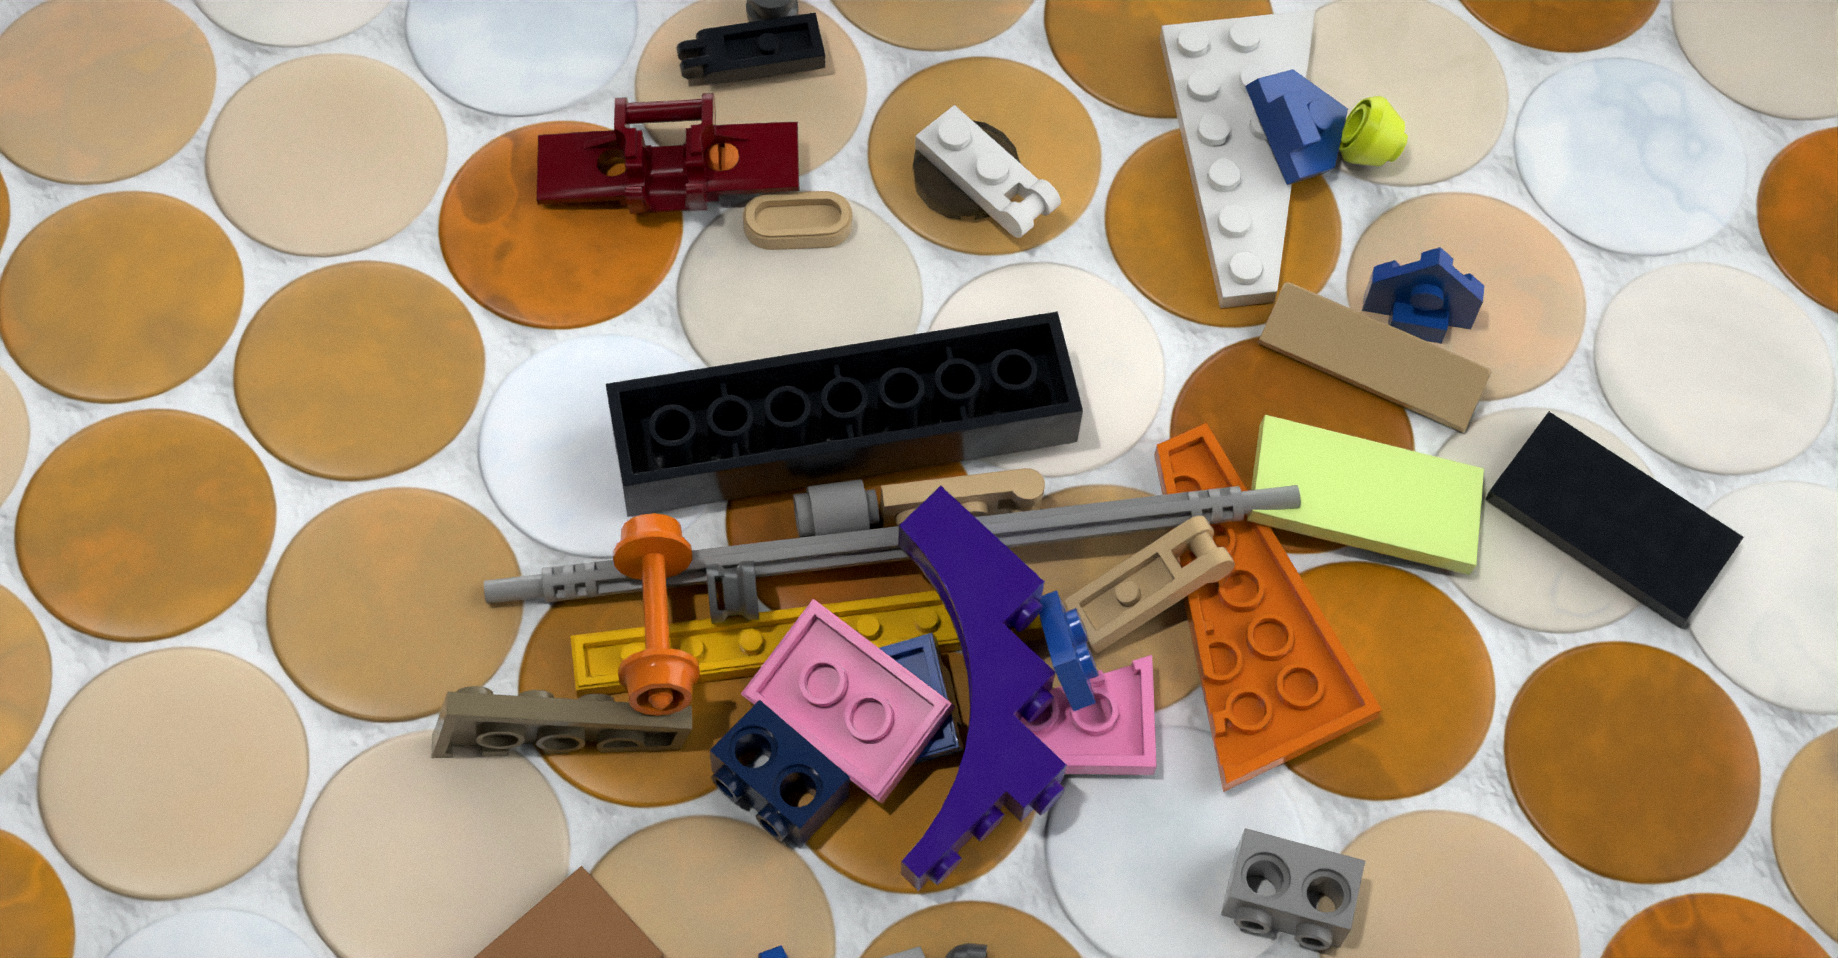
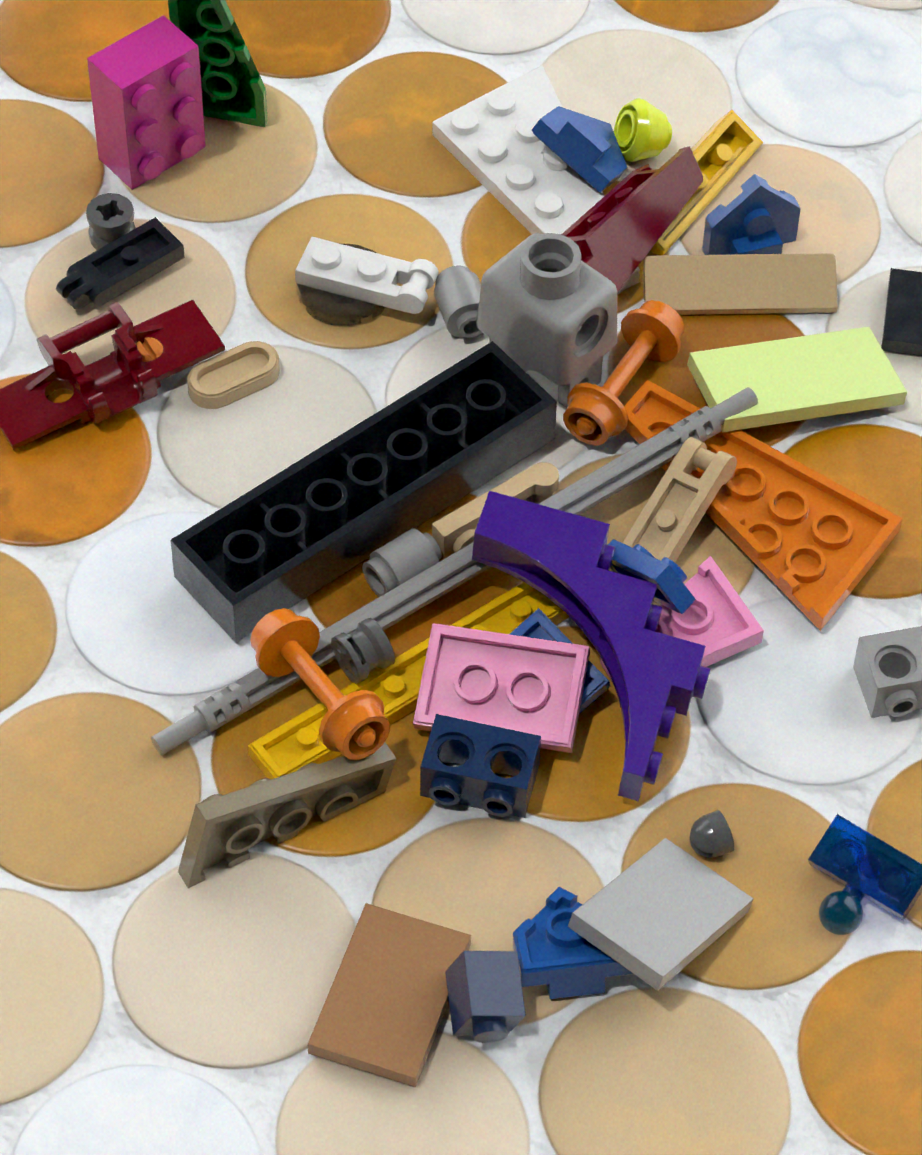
camera: 25 degrees left, 10 degrees down
(1069, 245) = (458, 300): none -> light grey brick
(1116, 313) = (537, 304): none -> light grey piece
(1244, 370) = (596, 411): none -> orange piece
(1269, 244) = (634, 215): none -> dark red wedge
(1395, 216) = (719, 157): none -> yellow slope

